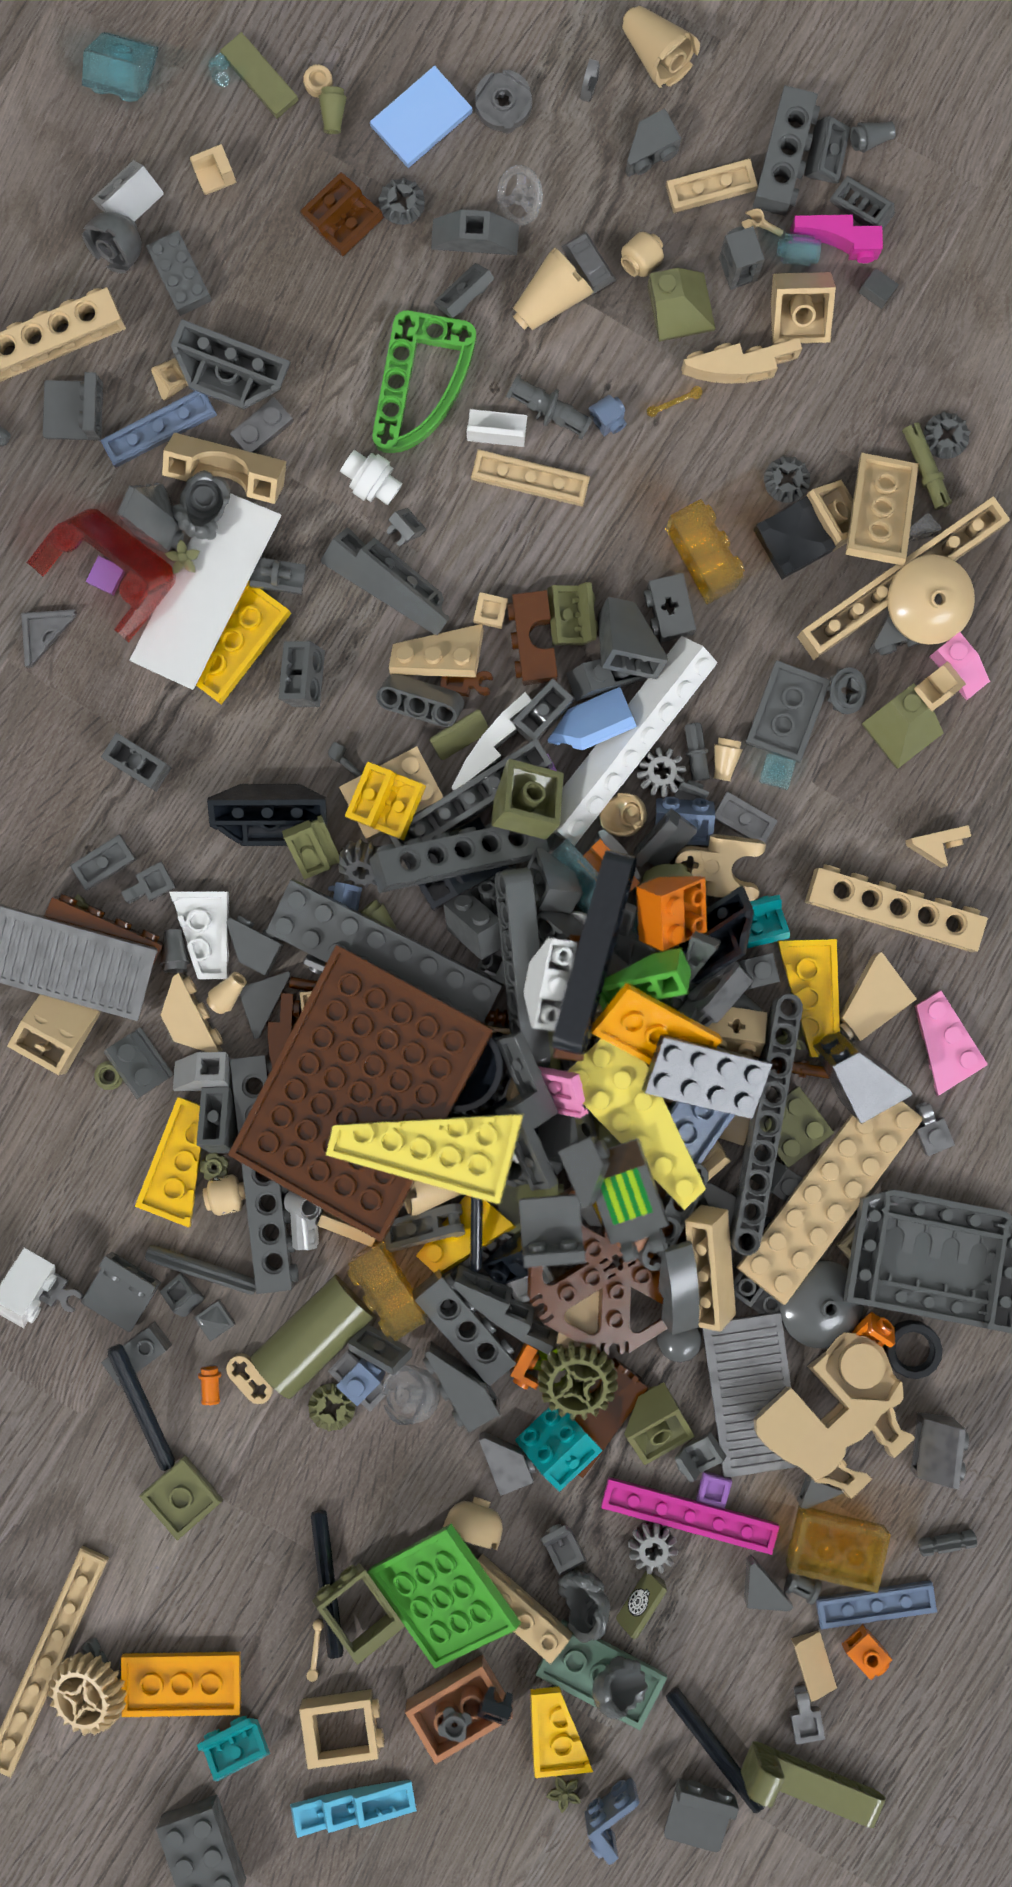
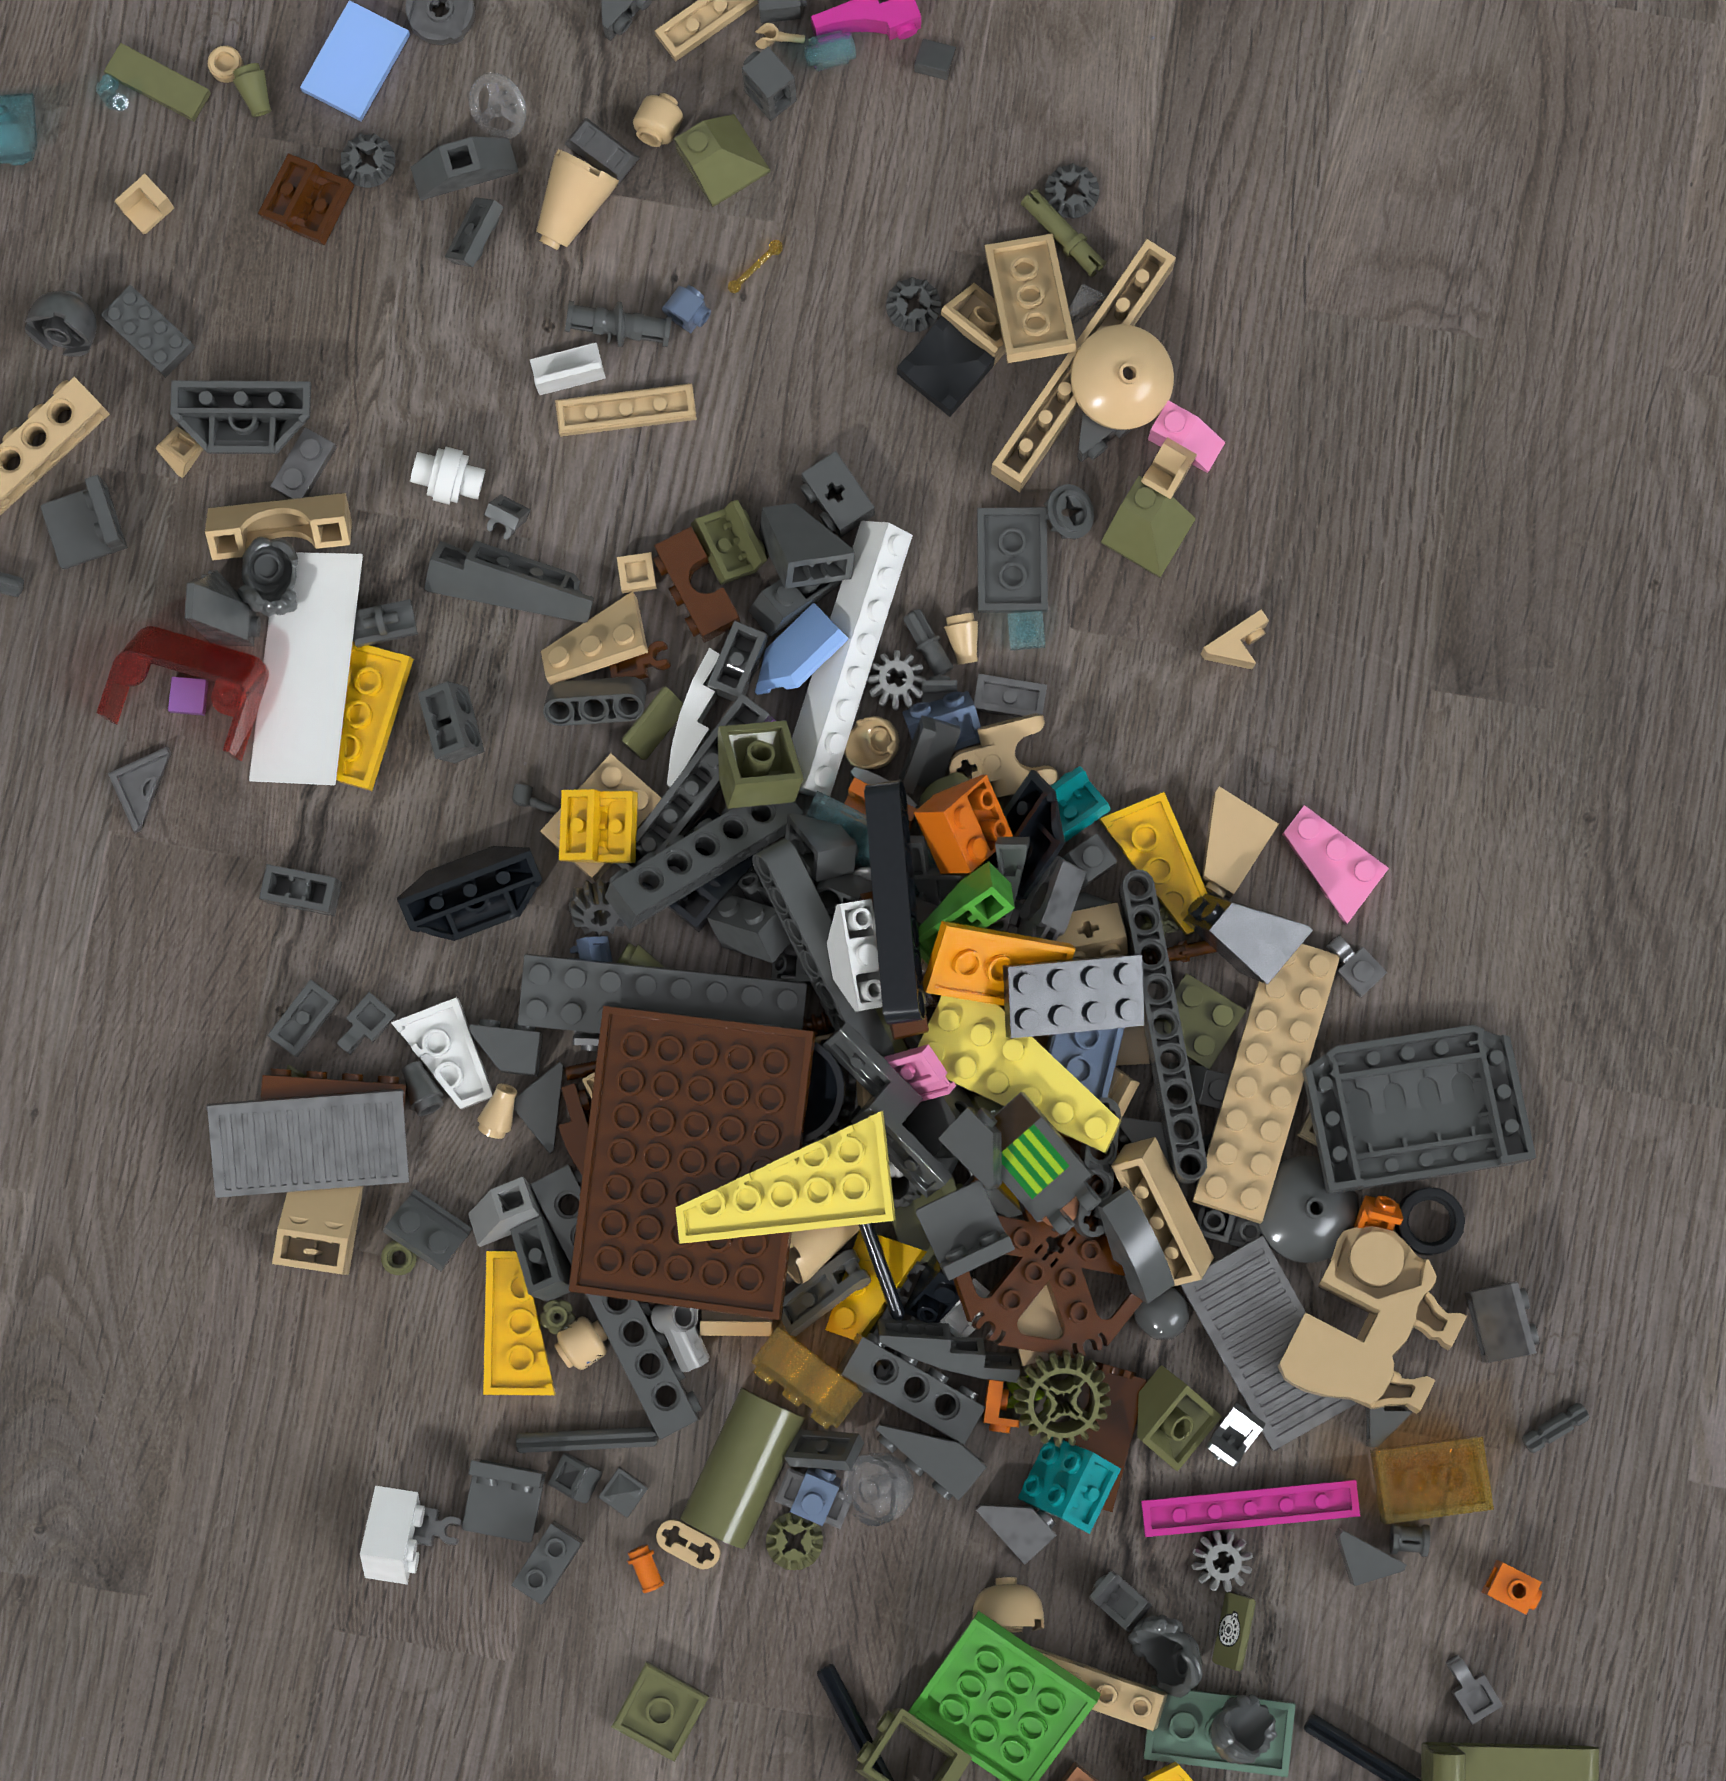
camera: 15 degrees left, 5 degrees down
(129, 192) = (59, 263): light grey panel -> none
(141, 1407) = (576, 1619): black axle -> none
(158, 428) = (186, 510): sand blue tile -> none
(183, 558) = (269, 643): olive plant -> none
(188, 1018) = (465, 1157): tan slope -> none
(311, 847) = (534, 911): olive plate -> none
(404, 368) = (427, 344): bright green beam -> none
(705, 551) = (851, 417): clear yellow brick -> none
(713, 1490) = (1266, 1469): medium lavender tile -> none
(730, 365) = (802, 204): tan slope -> none
(802, 306) = (857, 111): tan slope -> none
(814, 1664) = (1458, 1626): tan slope -> none
(867, 1606) = (1502, 1530): sand blue tile -> none
(970, 922) = (1306, 715): tan brick -> none

